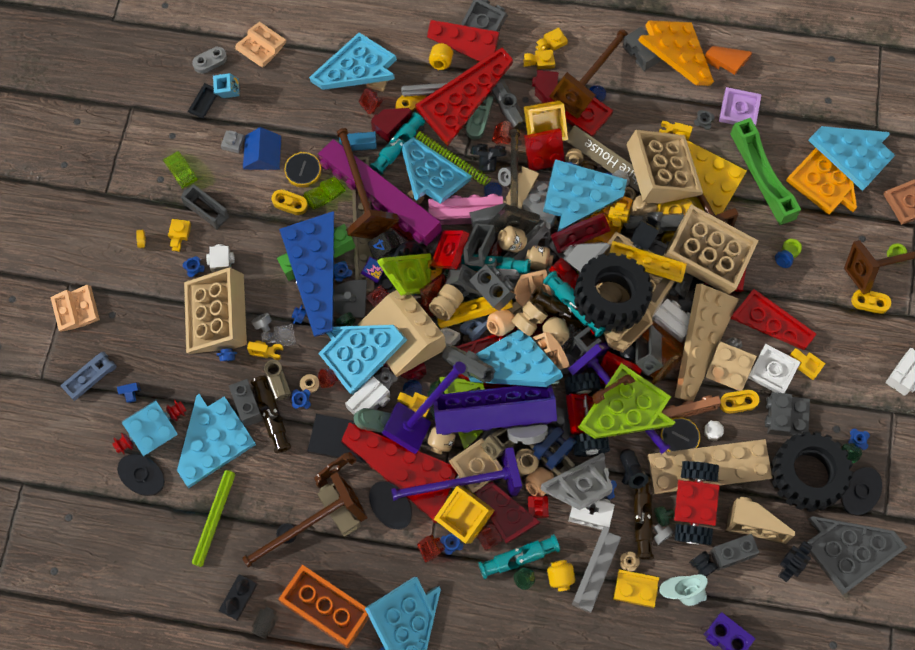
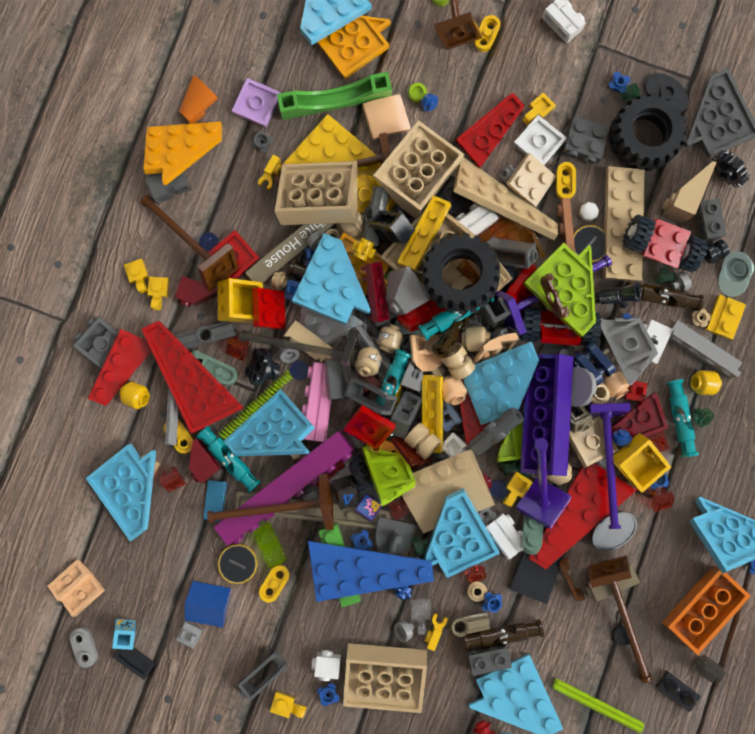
camera: 80 degrees left, 15 degrees up
(180, 169) = (213, 696): clear neon green slope -> none
(226, 355) = (433, 672): blue plate -> none
(486, 492) = (622, 437): none -> blue plate
(491, 289) = (427, 396): dark grey brick -> none
(759, 221) = (386, 116): none -> light nougat slope

